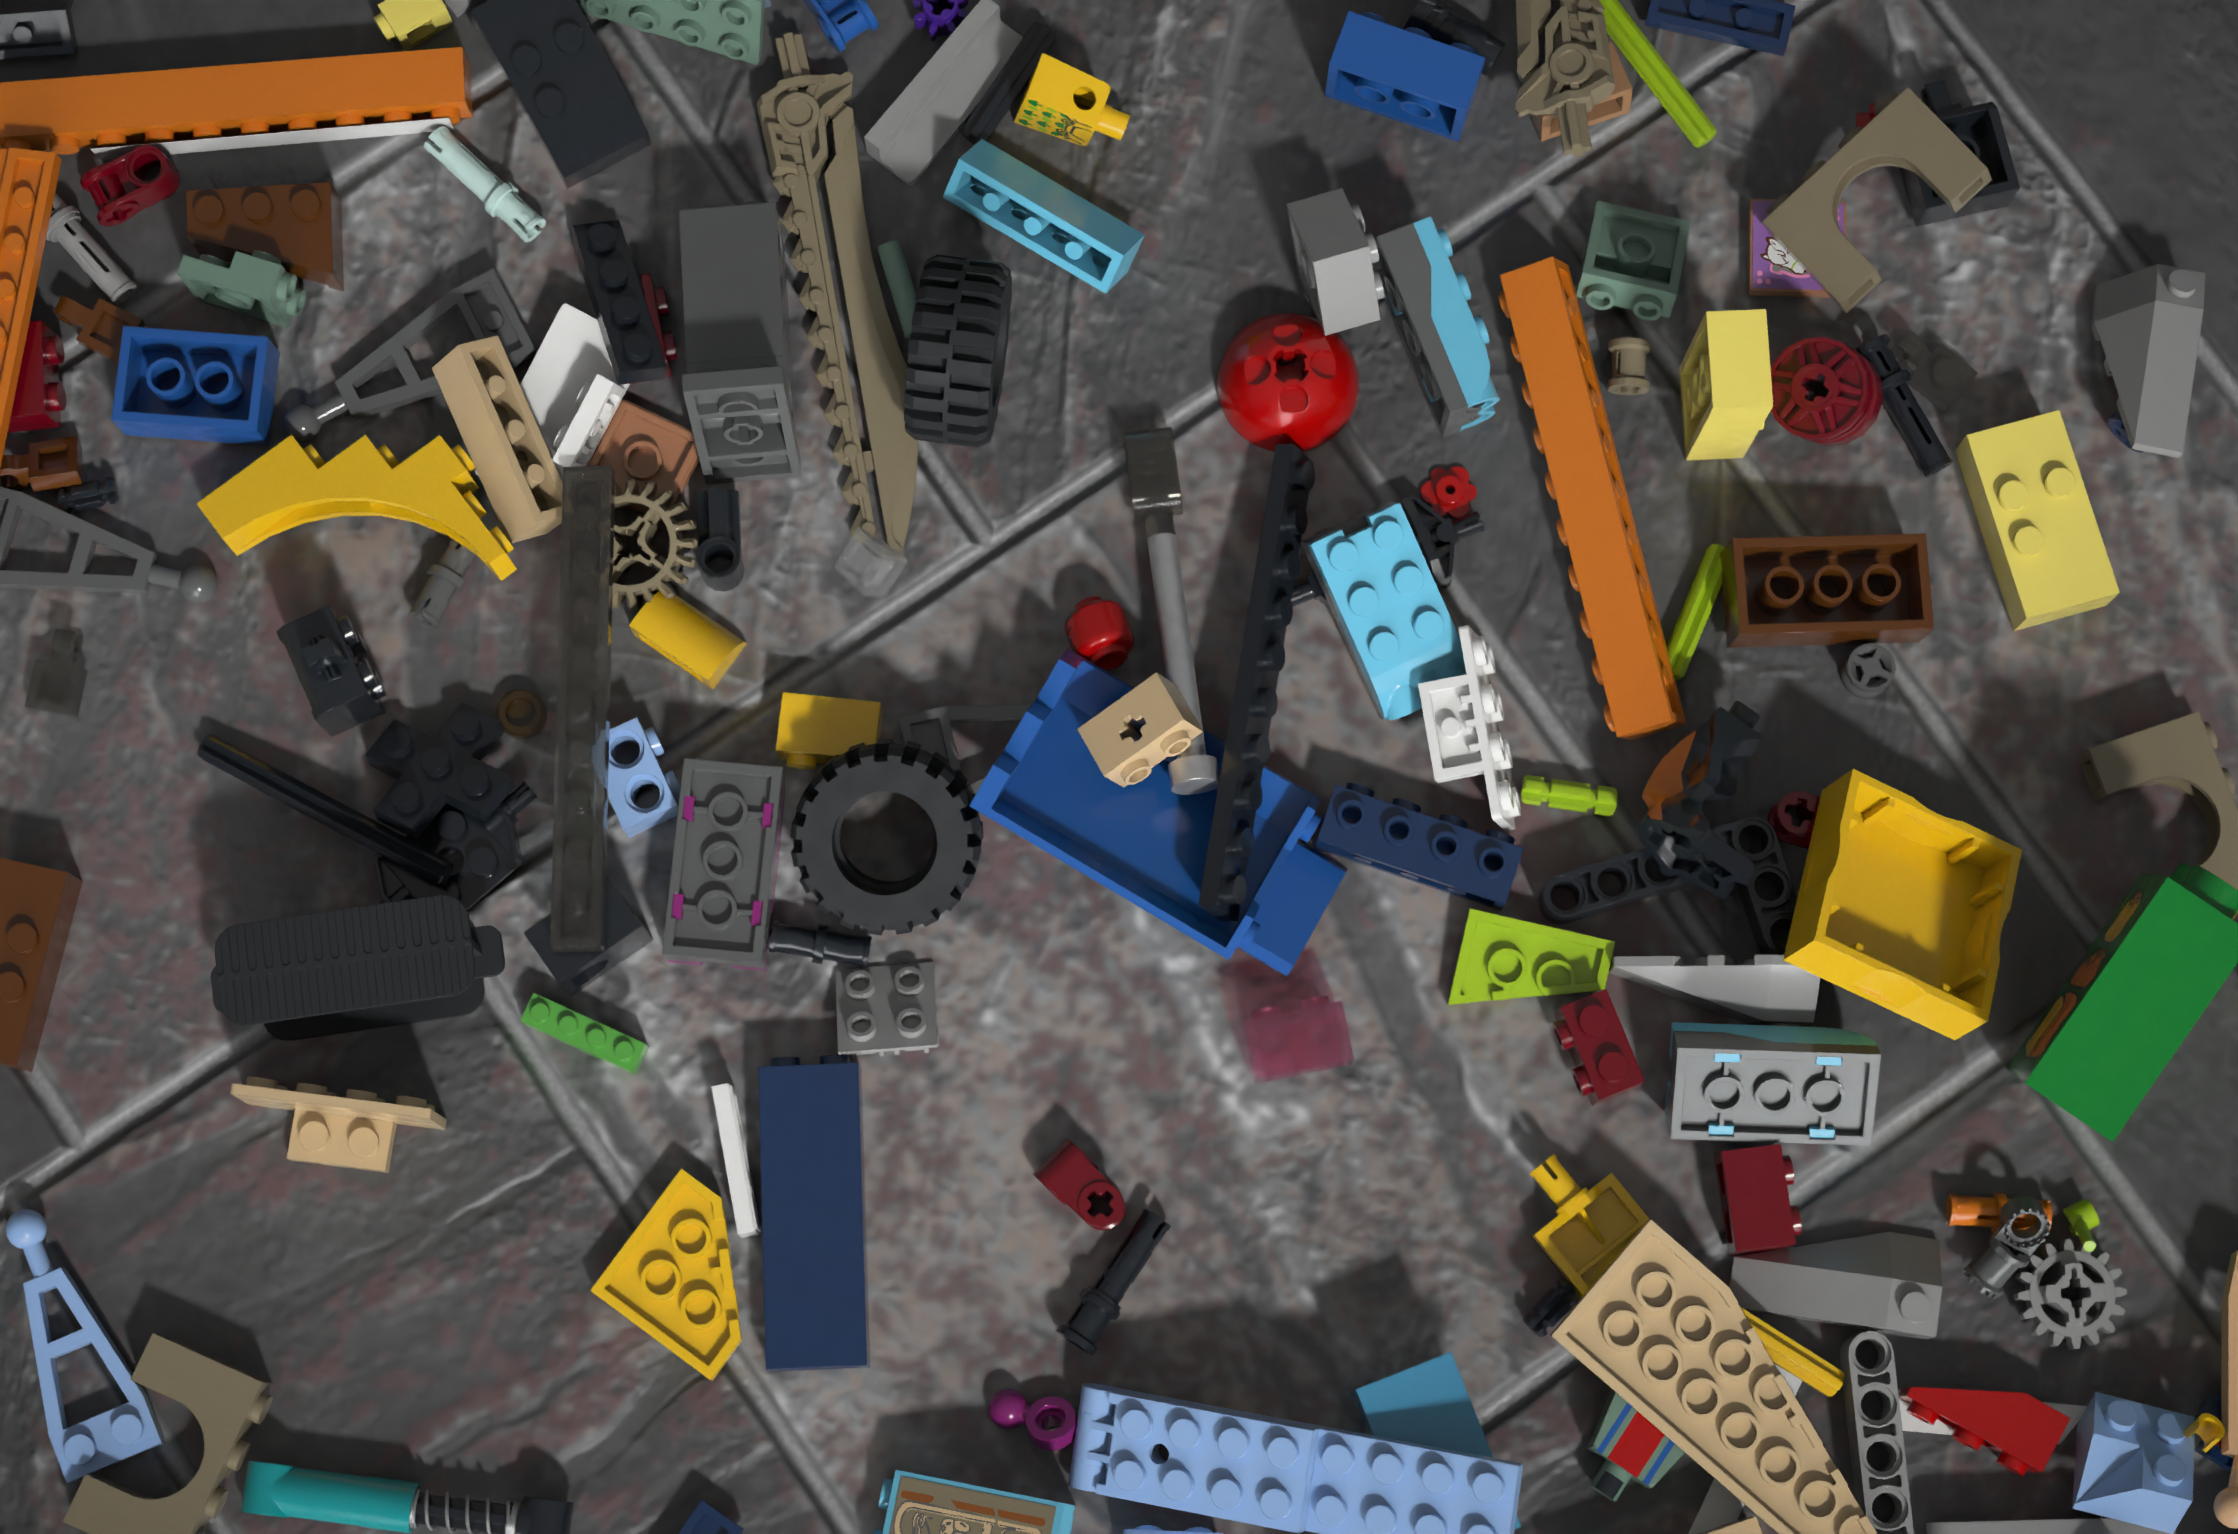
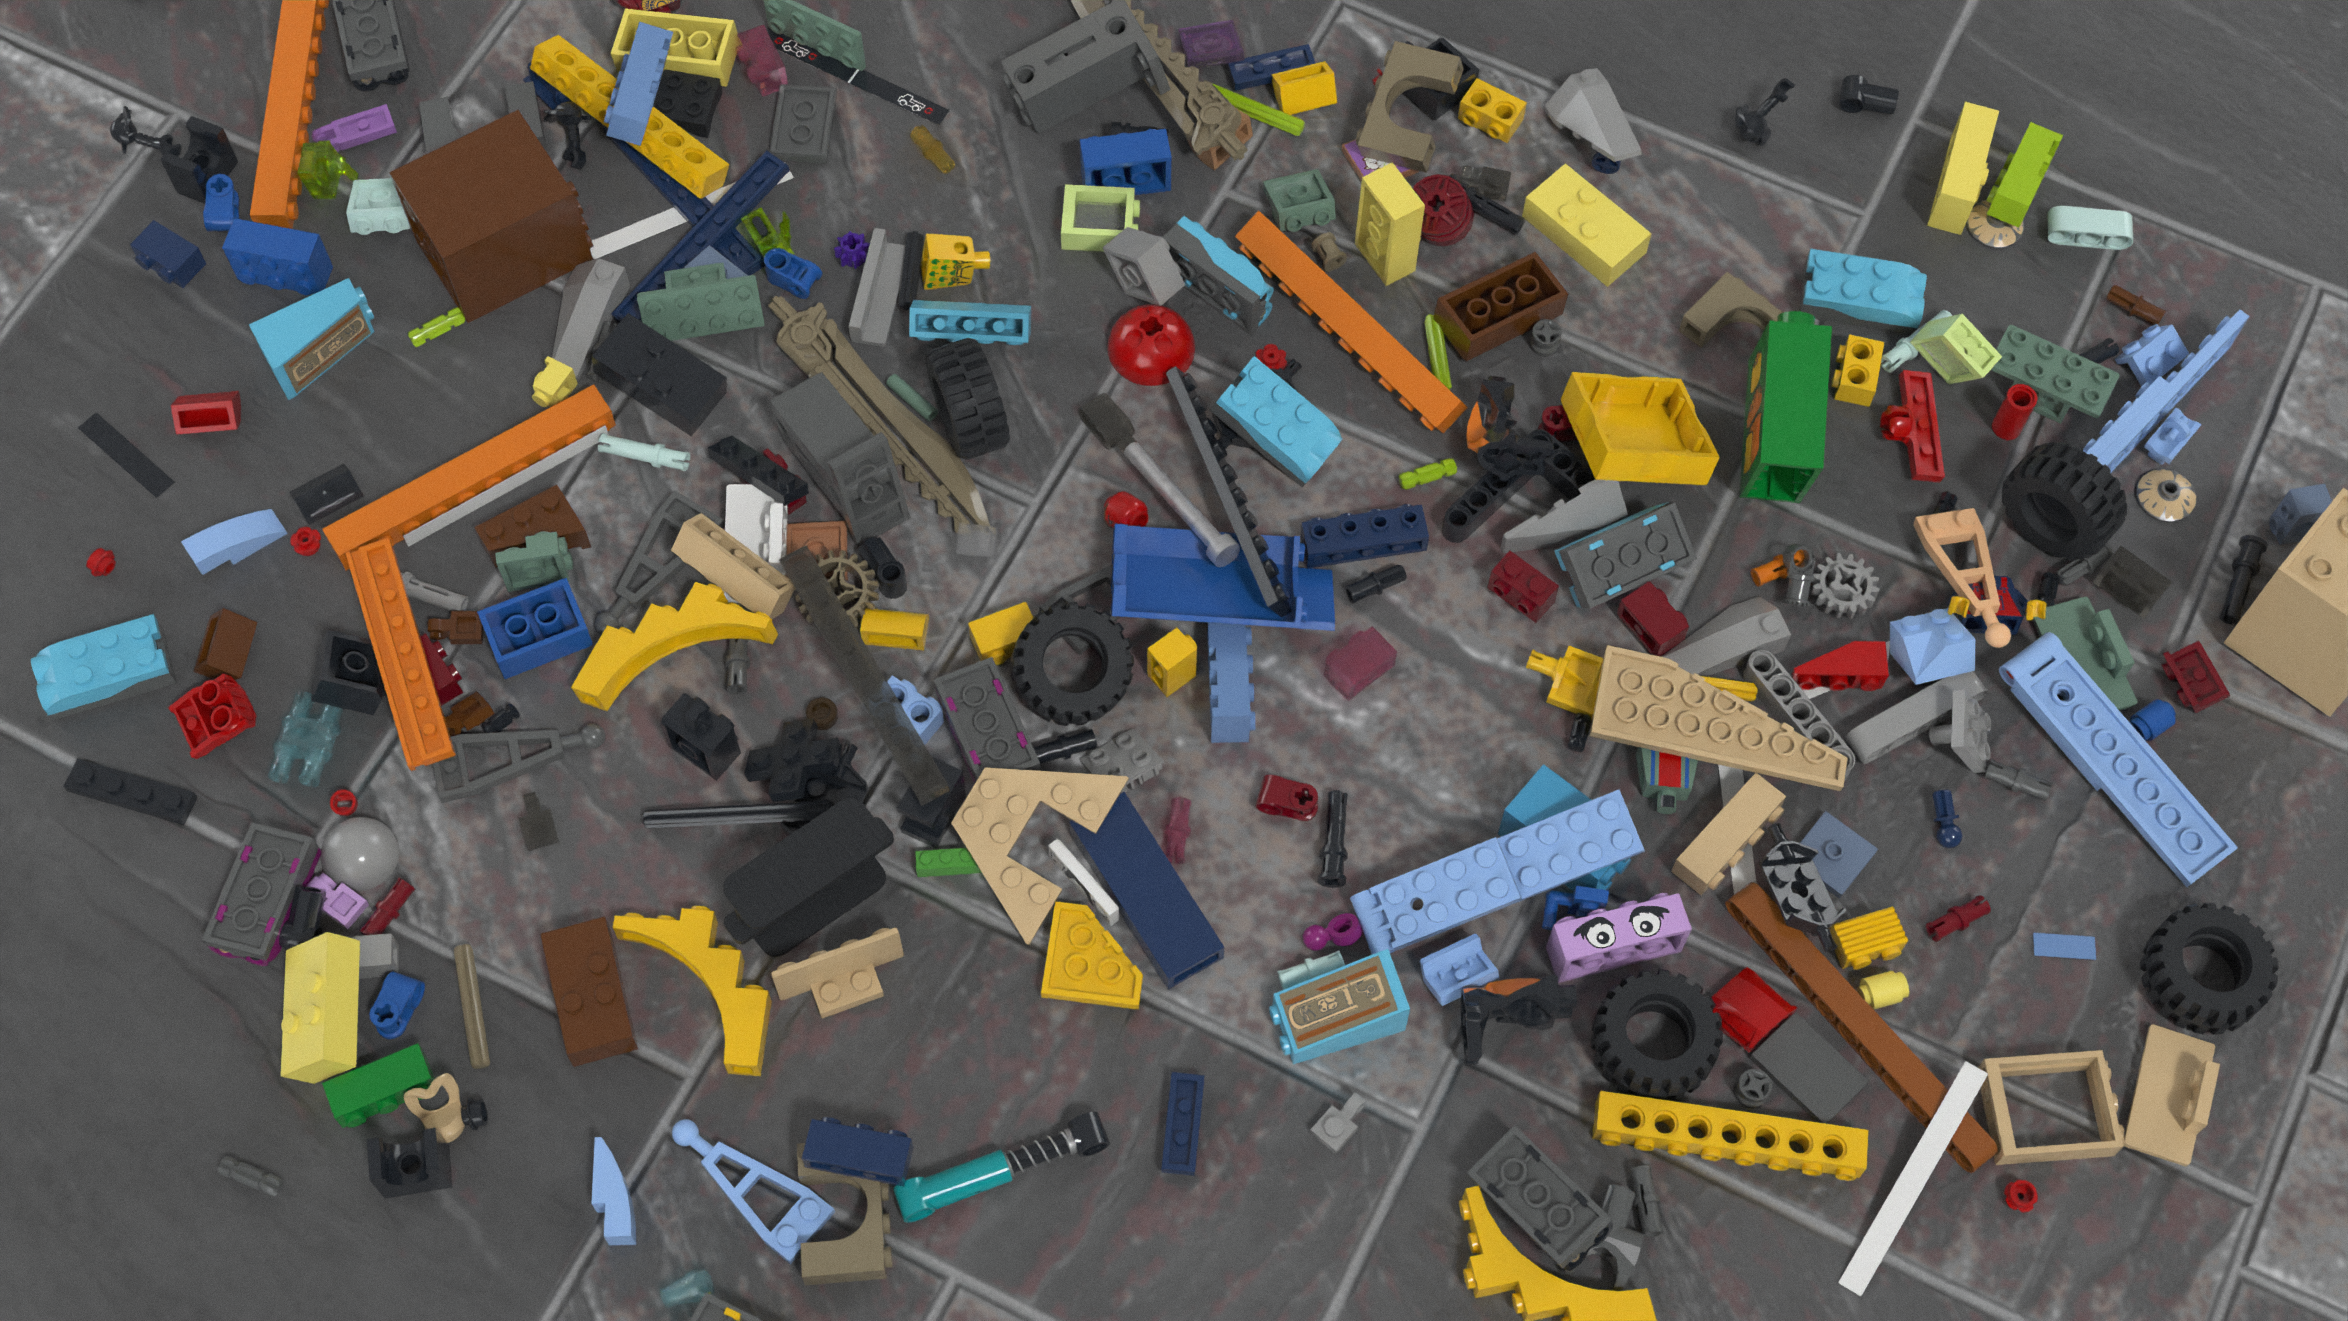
camera: 30 degrees left, 15 degrees down
(126, 184) = (433, 548): dark red piece -> none
(182, 1102) = (692, 942): none -> yellow arch
(218, 1395) = (858, 1151): none -> dark blue brick
(663, 1008) = (999, 812): none -> tan wing
(908, 1151) = (1178, 830): none -> clear pink pin
(973, 1456) = (1310, 969): none -> light aqua pin
(1034, 902) = (1172, 661): none -> yellow brick
(1095, 979) = (1229, 682): none -> medium blue wedge
(1140, 731) = (1168, 546): tan brick -> none
(1322, 137) = (1100, 215): none -> yellowish green window
(1396, 926) = (1375, 583): none -> black axle
(1464, 731) = (1354, 459): white bracket -> none
(1525, 959) = (1455, 564): lime wing -> none
(1748, 76) = (1305, 88): none -> yellow brick
(2019, 252) = (1497, 112): none -> yellow brick
(2082, 1219) = (1828, 546): lime hand -> none

